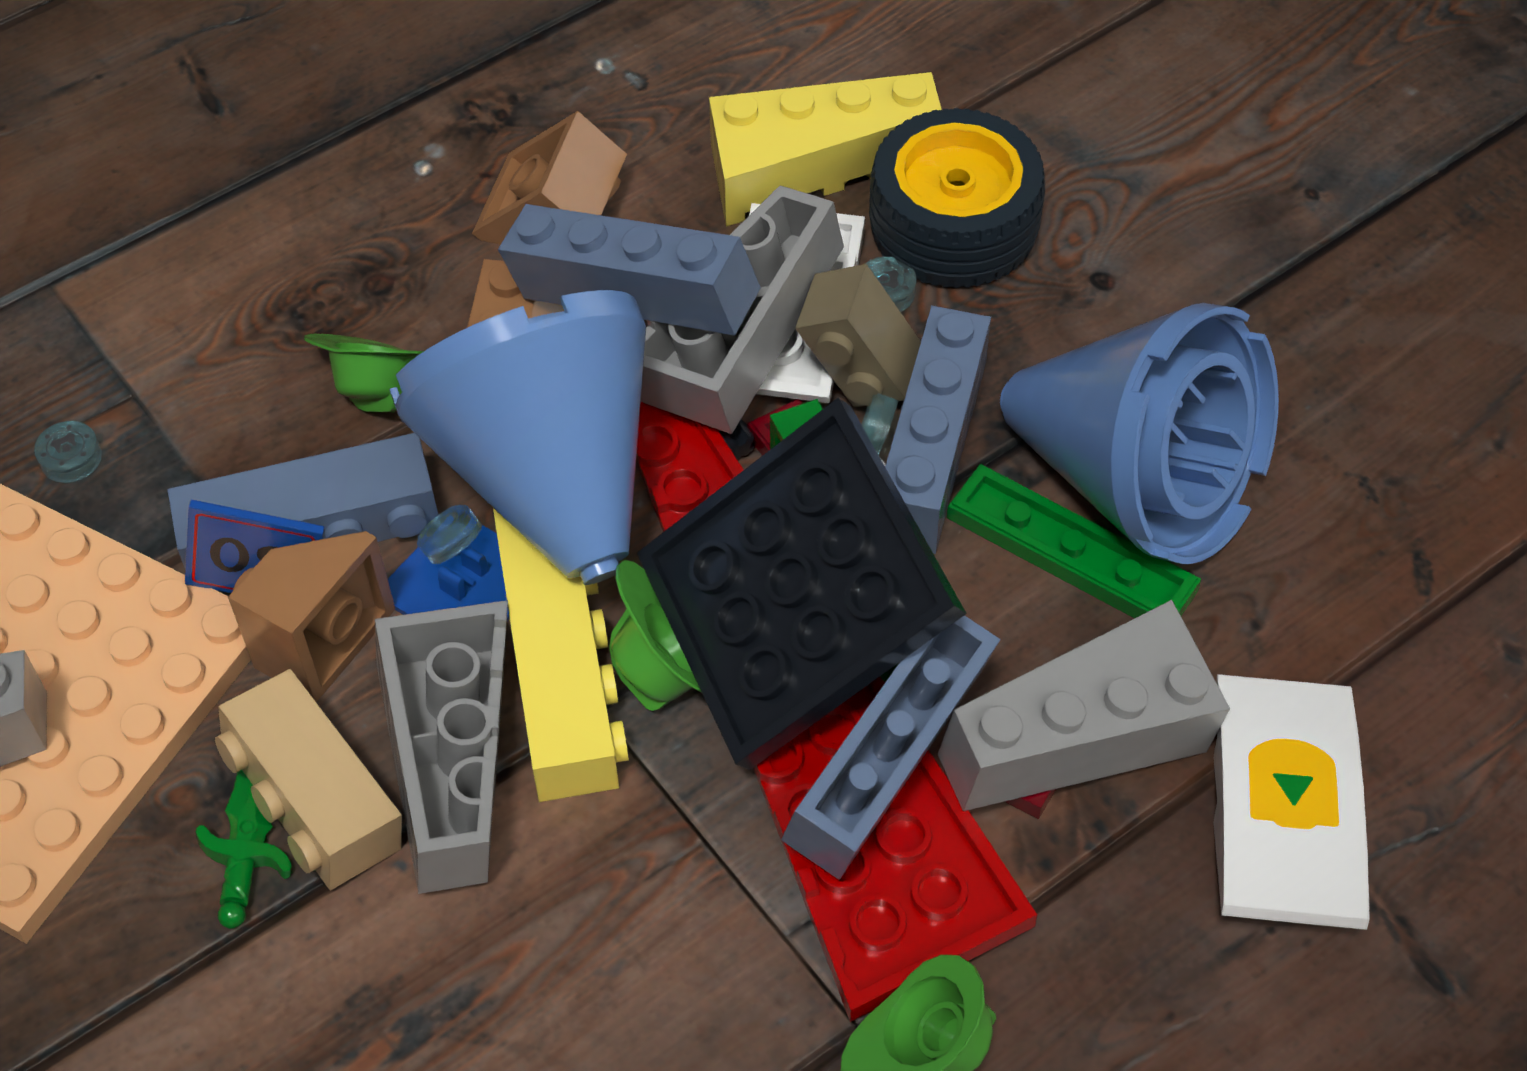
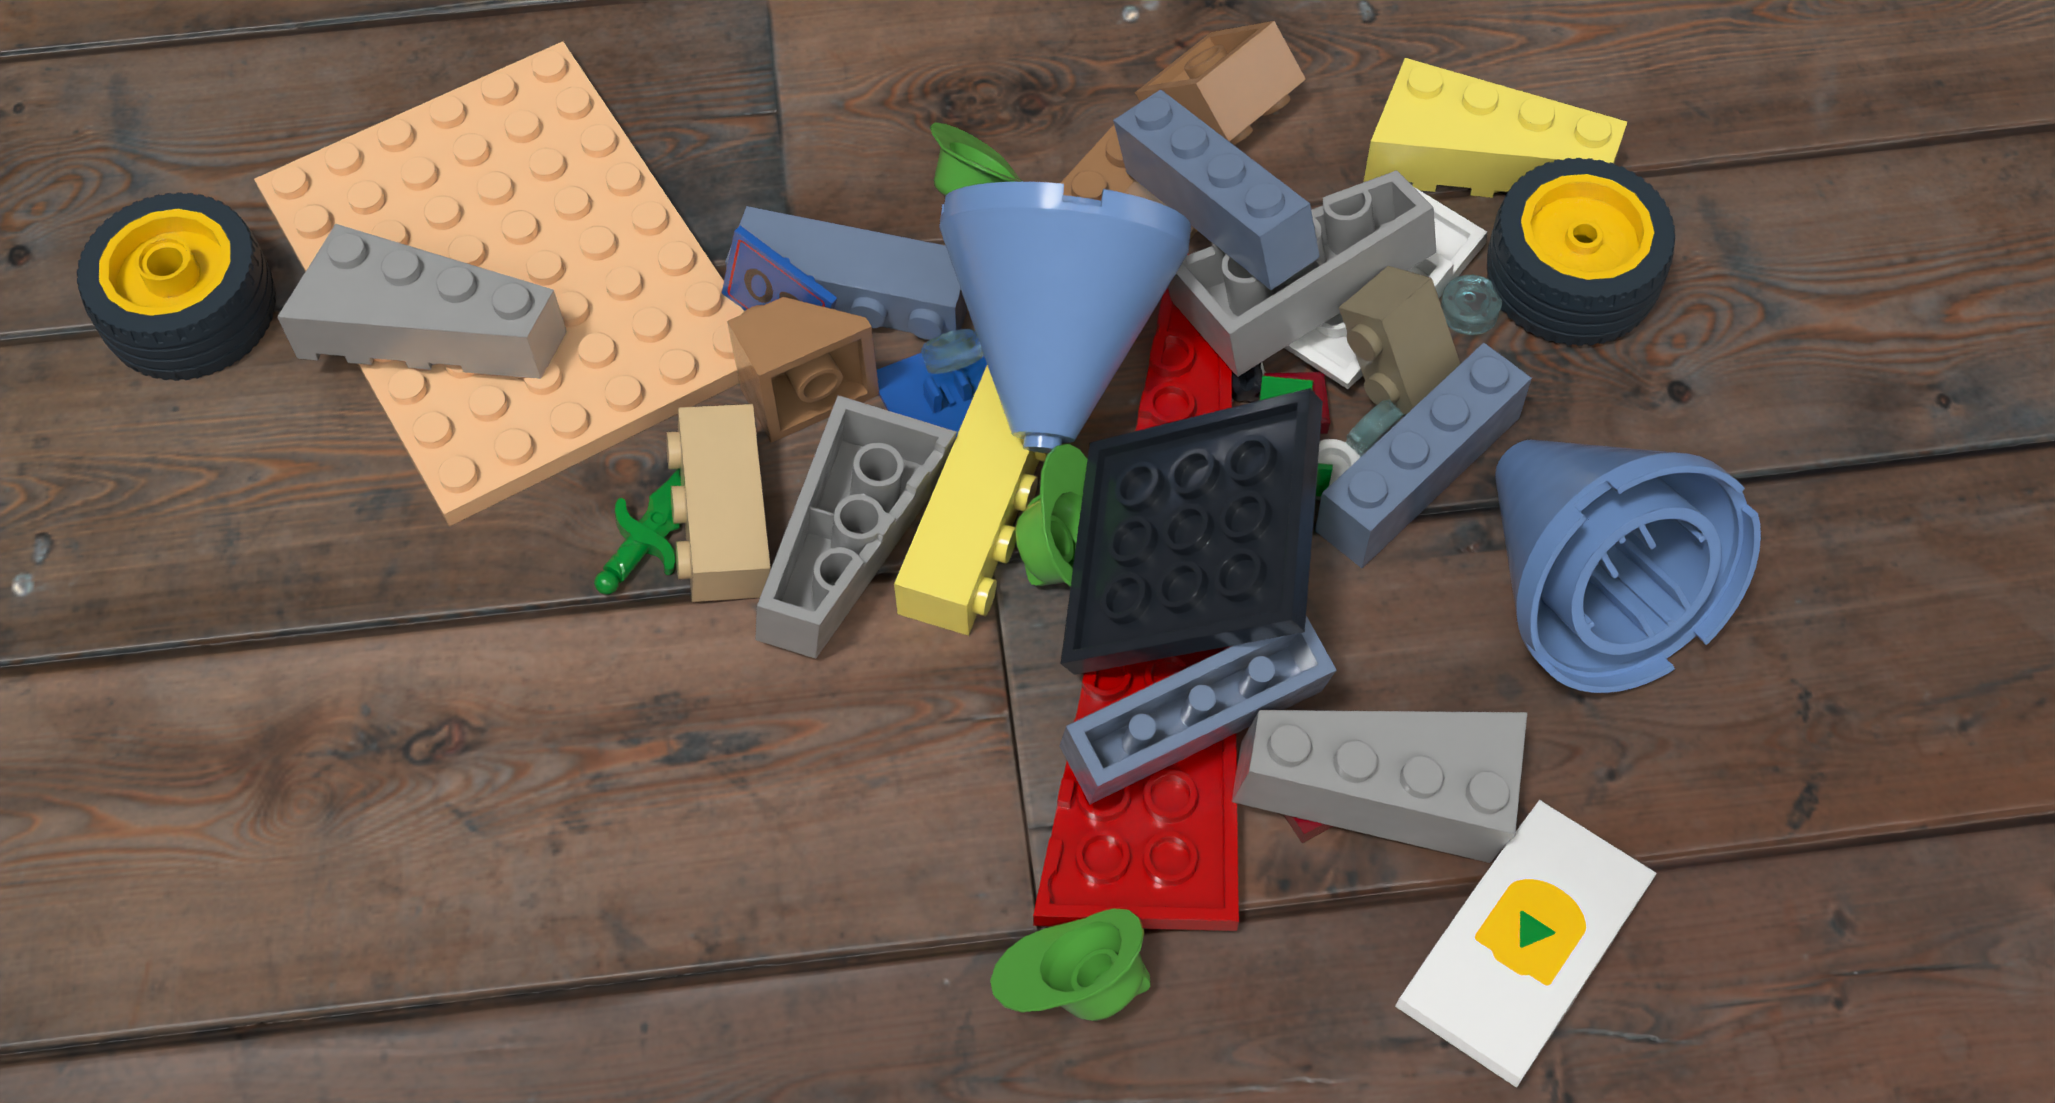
camera: 30 degrees right, 5 degrees up
(68, 451) = (698, 137): clear light blue tile -> none
(1069, 545) = (1483, 622): green tile -> none

